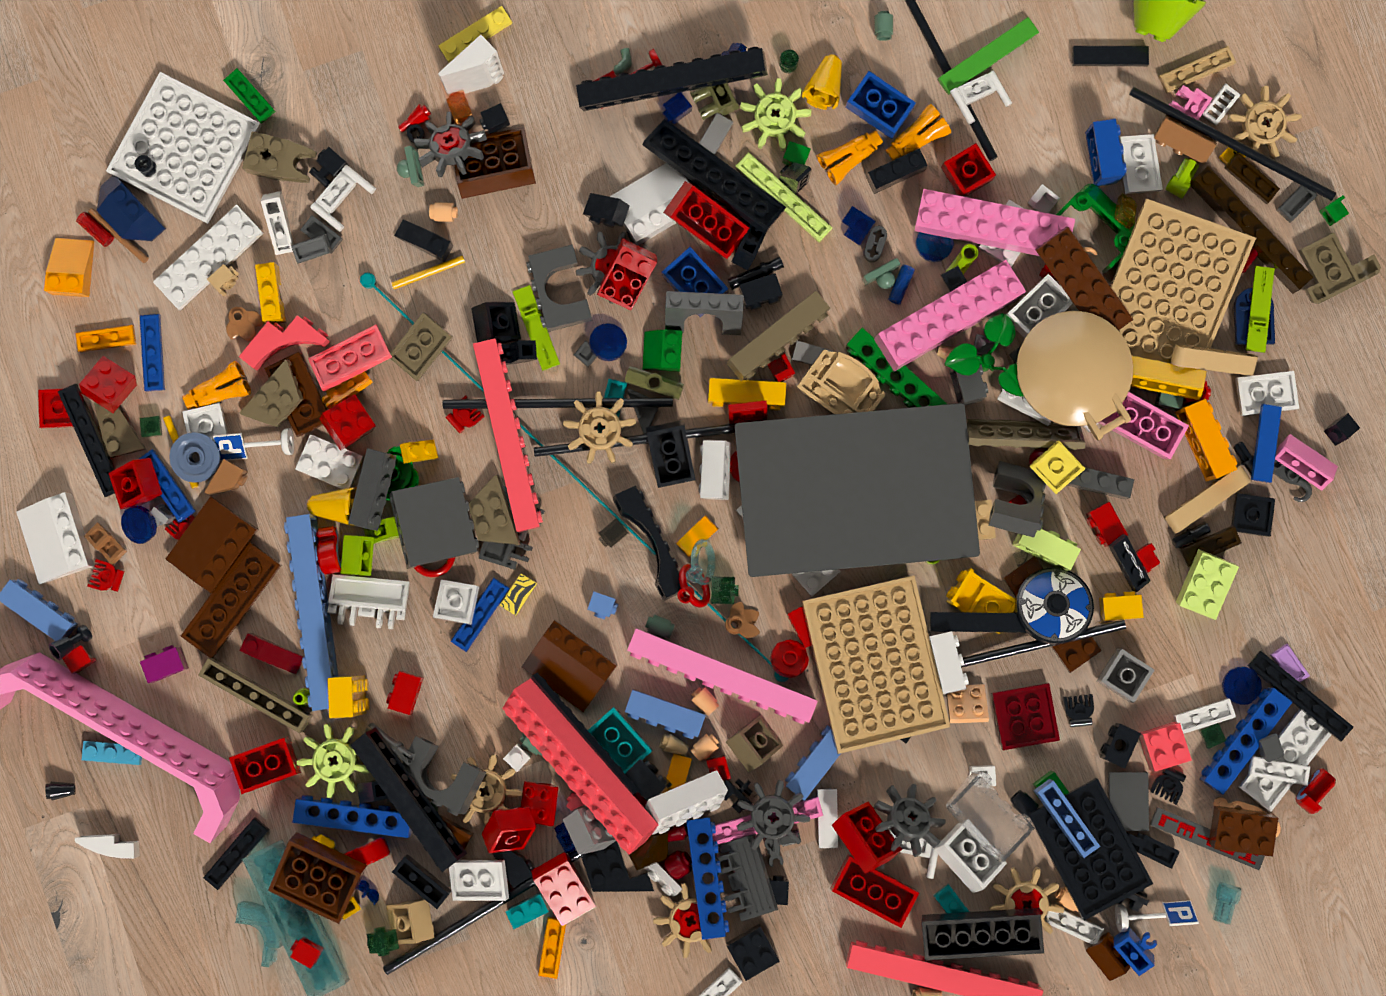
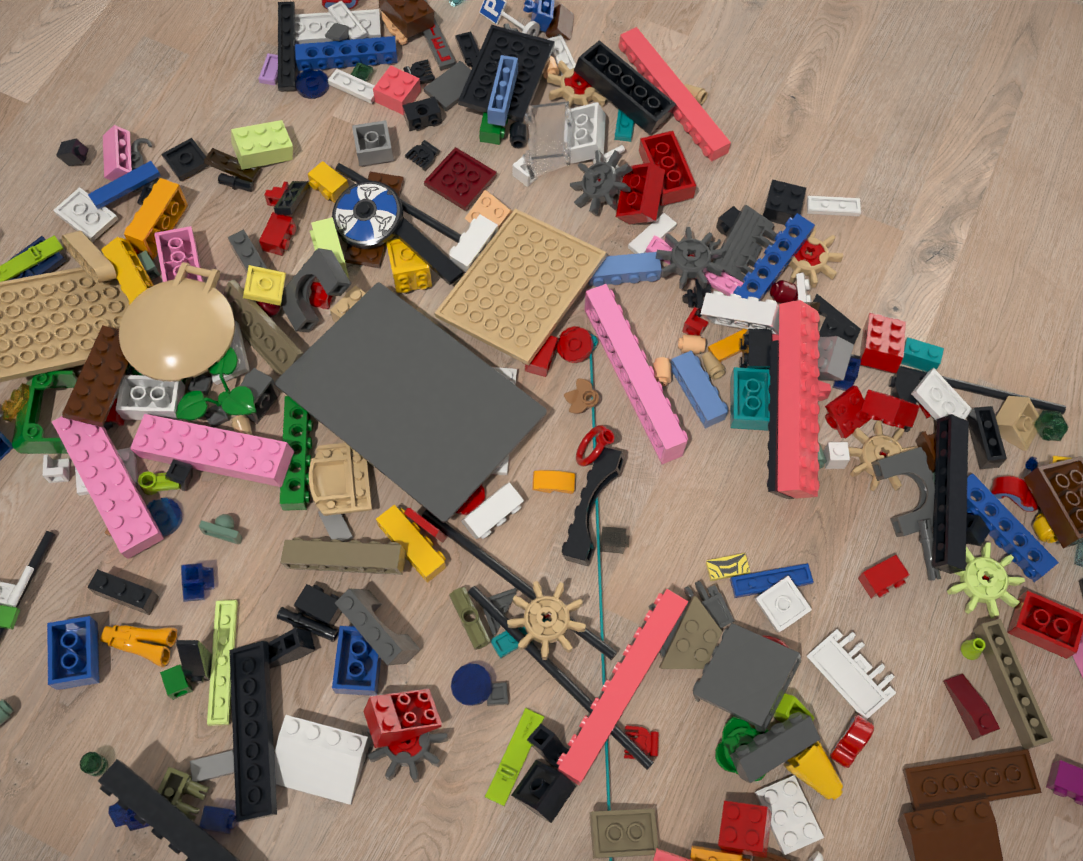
camera: 135 degrees left, 20 degrees down
(312, 607) = (908, 702): medium blue brick -> none
(347, 696) = (938, 603): yellow brick -> none
(357, 555) = (833, 713): lime brick -> none
(418, 451) = (706, 746): yellow plate -> none
(543, 266) = (457, 797): dark grey arch -> none
(552, 948) = (925, 320): light orange tile -> none
(569, 665) = (736, 482): reddish brown slope -> none
(602, 605) = (672, 499): medium blue brick -> none
(606, 210) = (362, 789): black brick -> none
(659, 626) = (644, 446): sand green brick -> none
(662, 350) = (437, 635): green slope -> none
(670, 453) = (512, 550): black brick -> none
(694, 573) = (571, 453): clear light blue piece -> none
(706, 220) = (297, 695): red brick -> none
(723, 590) = (573, 426): clear green brick -> none
(754, 743) = (655, 316): dark tan slope -> none
(775, 104) = (149, 720): yellowish green gear -> none
(781, 369) = (368, 532): red panel -> none
(824, 85) = (89, 714): yellow cone -> none
(879, 246) = (200, 555): dark grey beam -> none
(902, 284) = (227, 507): blue piece -> none
(909, 140) = (87, 603): light orange piece -> none
(968, 171) = (76, 538): red brick -> none
(1207, 499) = (208, 192): tan beam -> none

